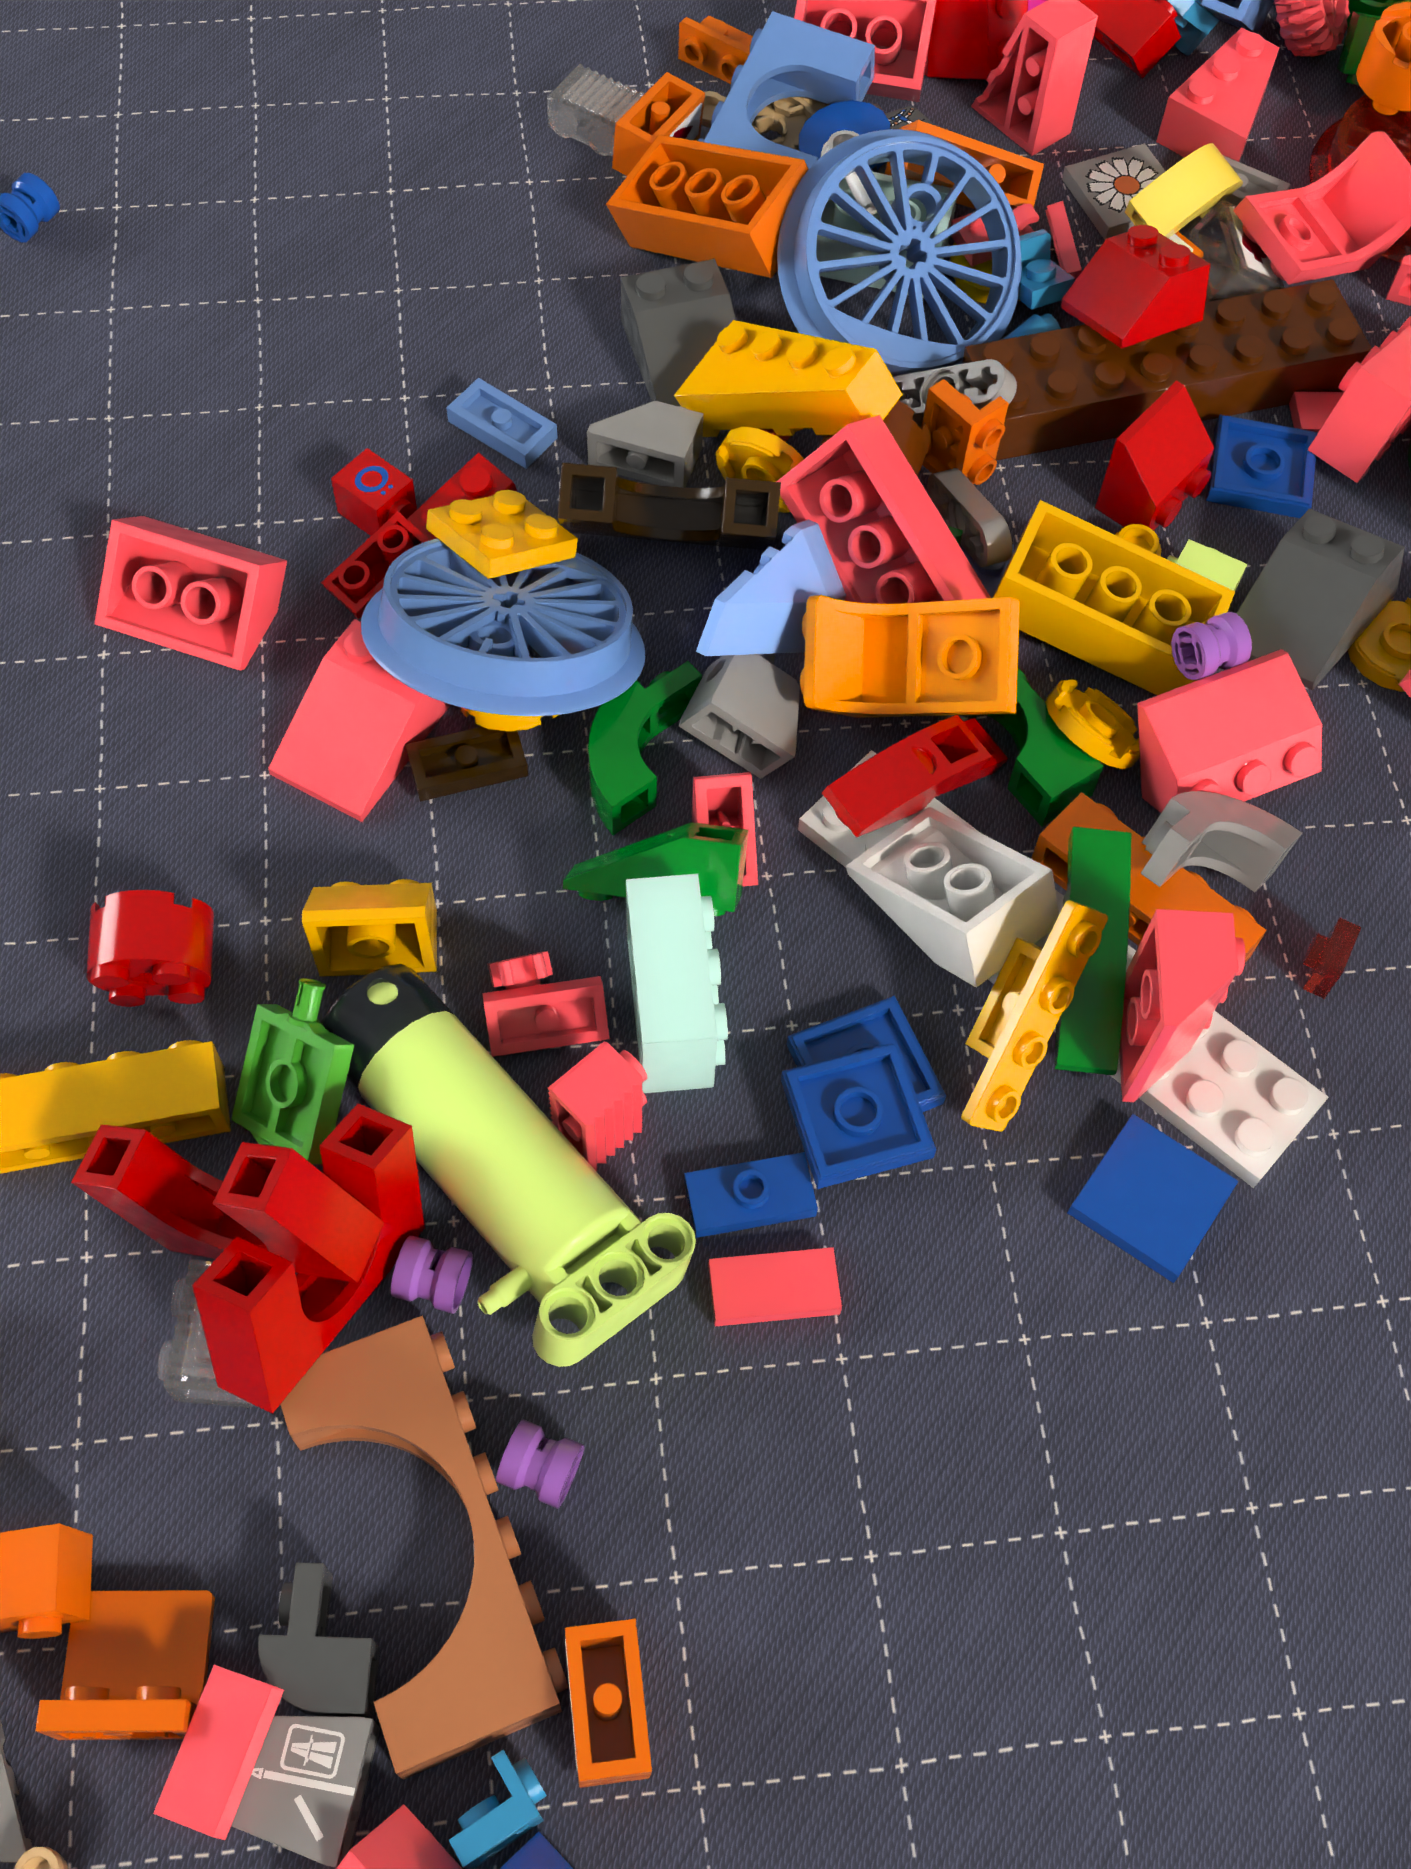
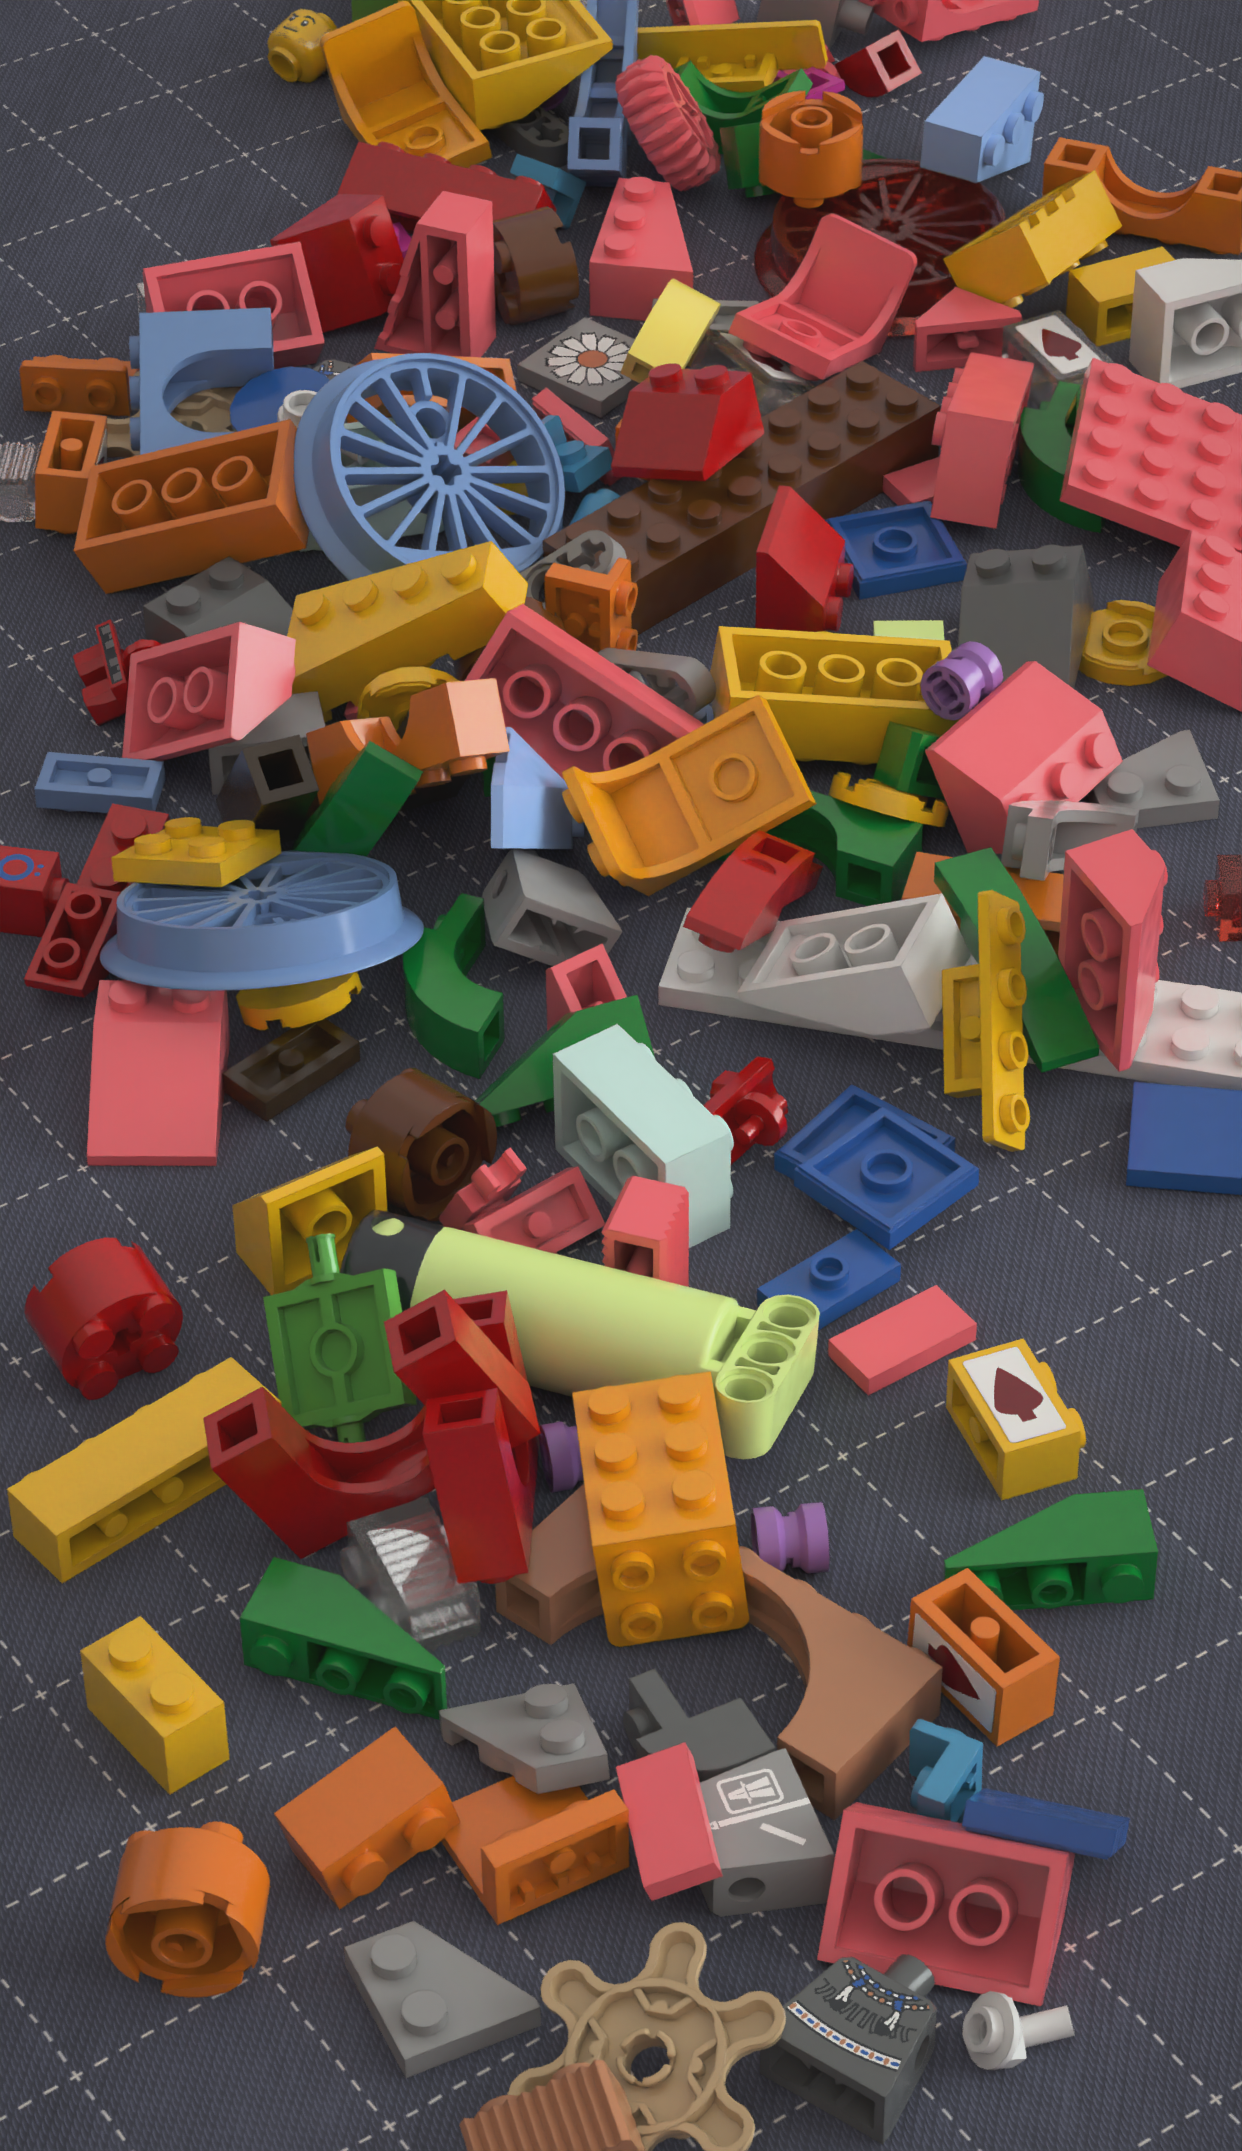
camera: 25 degrees left, 20 degrees down
(118, 1355) = (331, 1636): none -> green slope
(204, 1564) = (534, 1736): none -> light grey wing
(426, 1386) = (660, 1510): none -> light orange bracket
(496, 896) = (428, 1140): none -> reddish brown brick
(581, 330) = (106, 673): none -> red hips
(609, 383) = (205, 690): none -> coral slope
(638, 552) = (359, 804): none -> green slope
(702, 518) = (446, 733): none -> orange arch
(765, 1614) = (1069, 1554): none -> green slope
(778, 986) = (749, 1106): none -> red hips
(808, 1434) = (1014, 1419): none -> yellow brick
(1119, 81) = (532, 267): none -> reddish brown brick
(1133, 683) = (905, 763): none -> green slope
(1343, 805) = (1163, 782): none -> light grey wing

